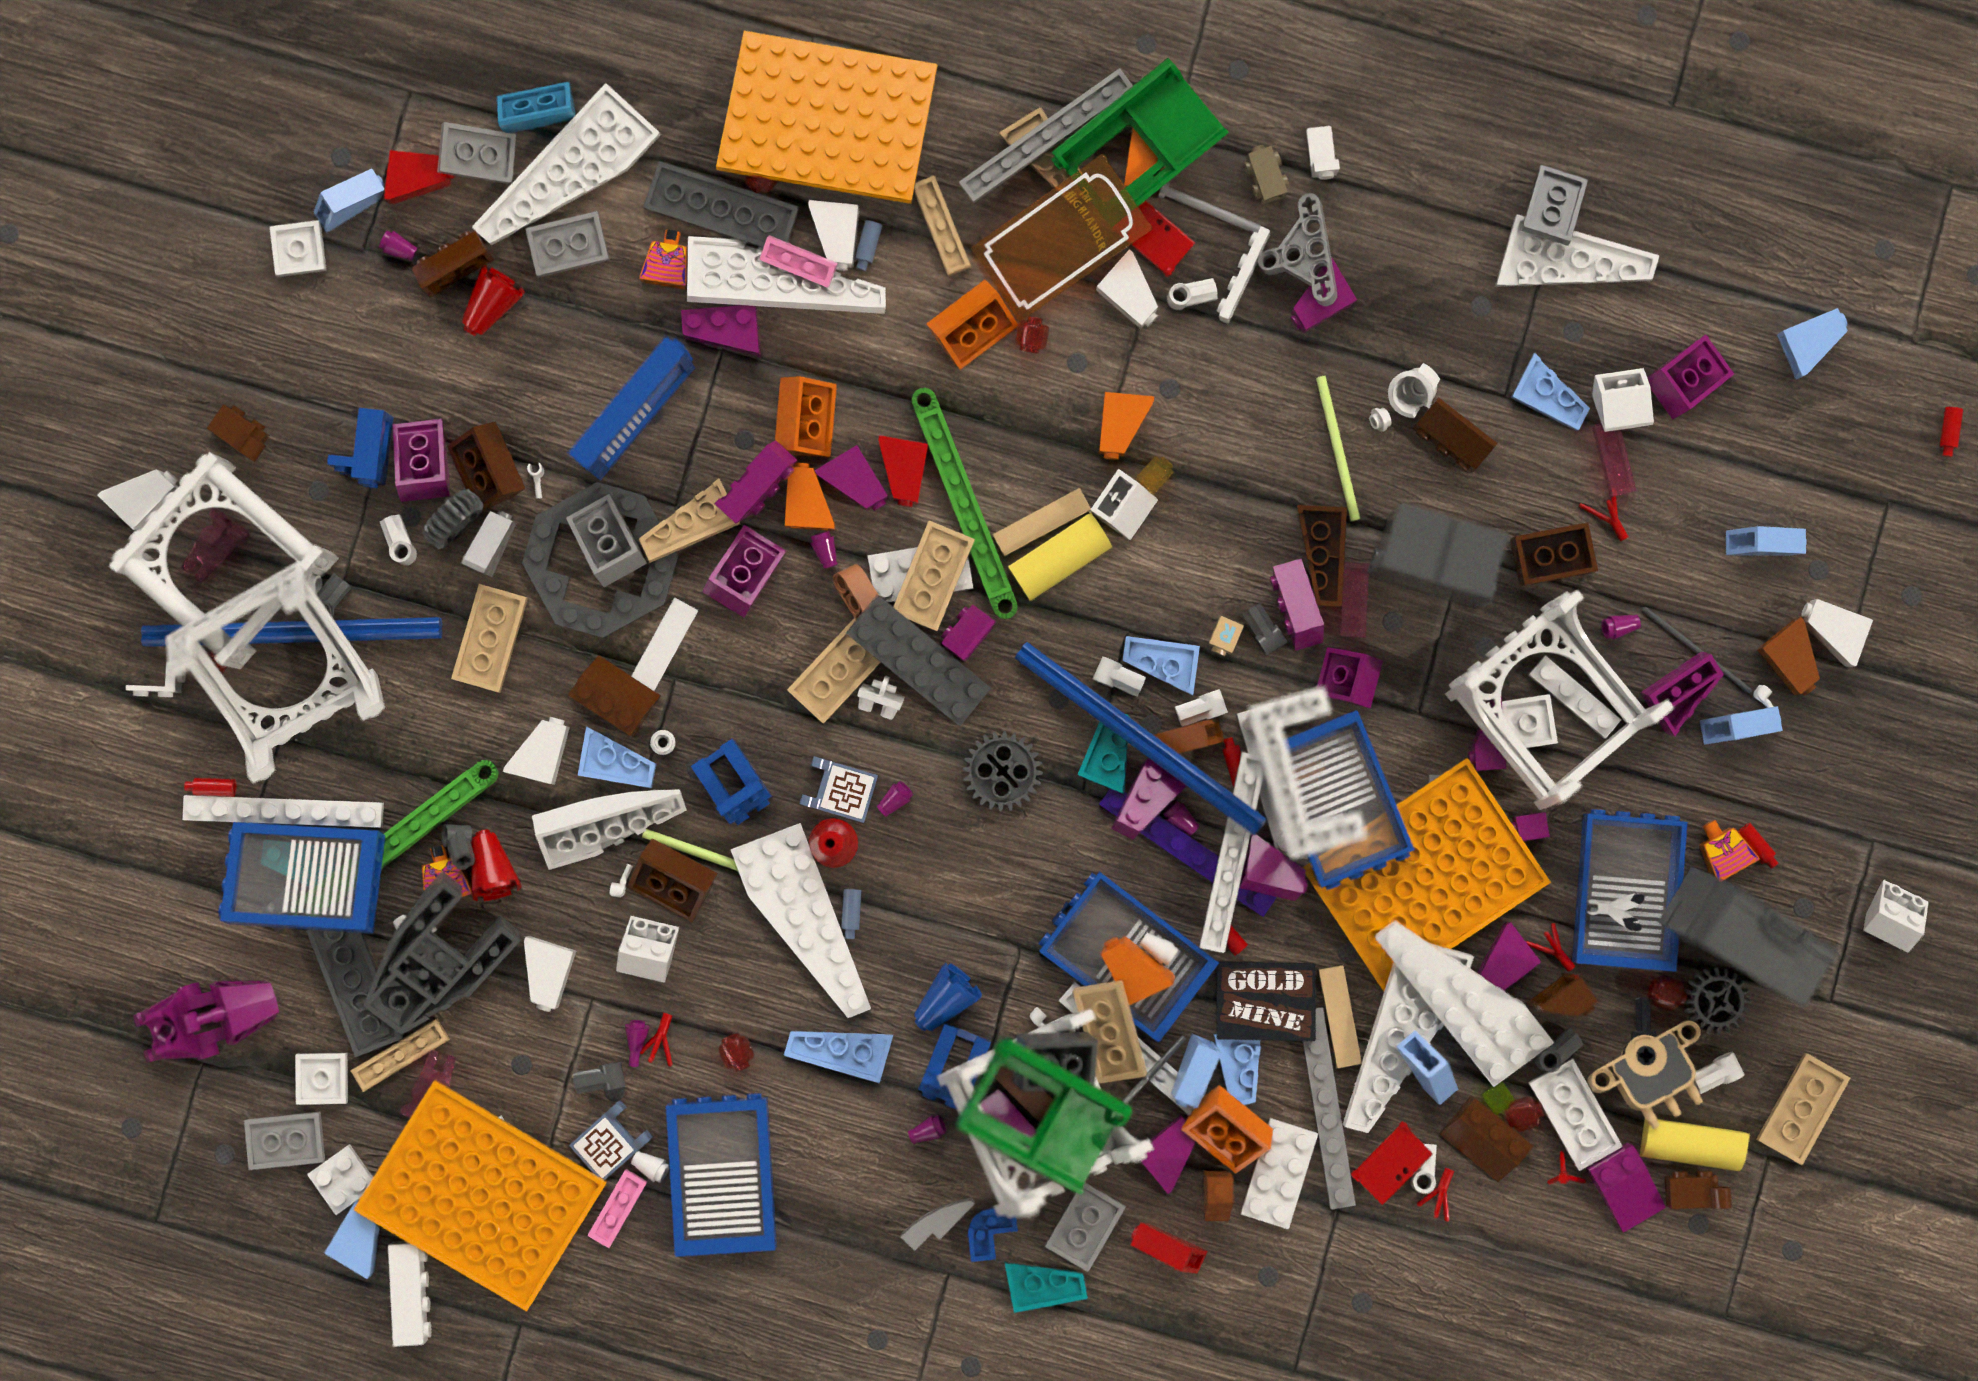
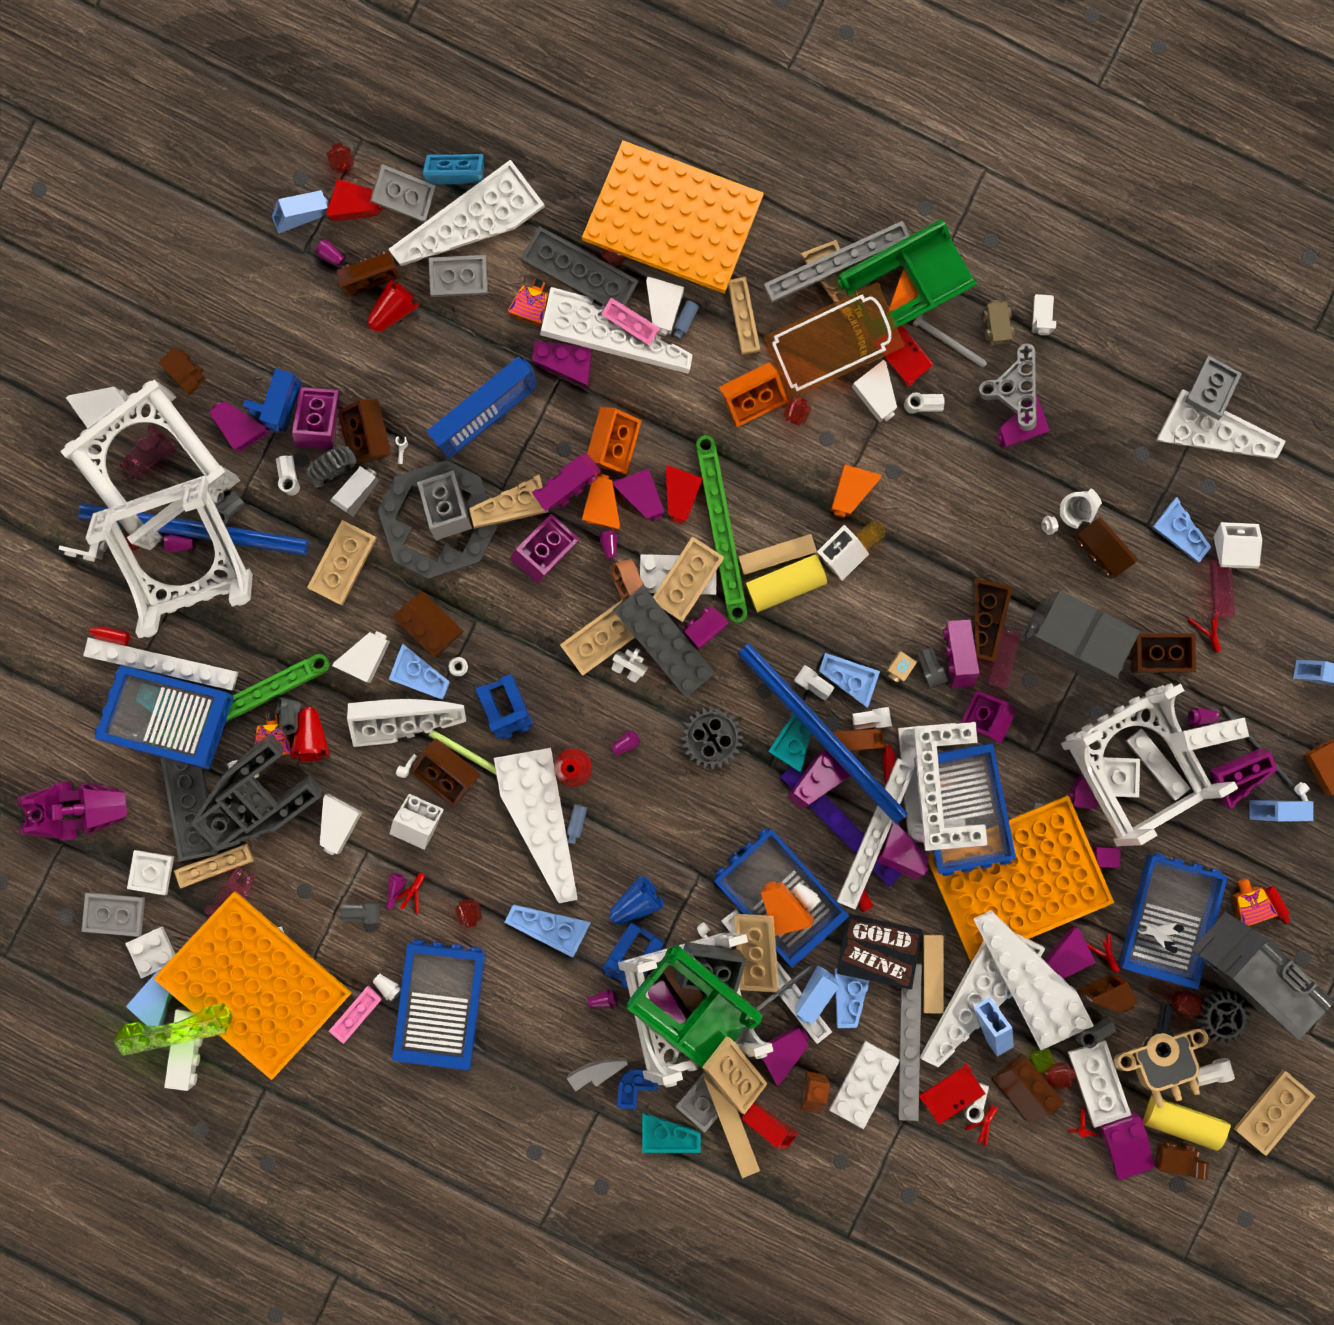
camera: 10 degrees right, 0 degrees up
(275, 653) = (177, 543): none -> magenta cone
(298, 248) = (254, 240): white plate -> none
(322, 490) = (236, 426): none -> magenta slope
(388, 122) = (340, 158): none -> clear red head
(427, 1255) = (207, 1023): none -> clear neon green arch
(608, 1143) = (358, 964): flag -> none
(664, 643) = (474, 592): white sticker -> none
(842, 790) = (587, 729): flag -> none
(1111, 1190) = (735, 1075): none -> tan plate
(1118, 1251) = (733, 1129): none -> tan tile
(1179, 816) = (840, 798): magenta cone -> none
(1228, 1130) = (832, 1045): orange slope -> none
(1238, 284) = (961, 401): white plate -> none
(1338, 448) = (1012, 541): yellowish green piece -> none
(1629, 647) = (1208, 735): none -> white brick
(1689, 377) = (1291, 538): magenta slope -> none

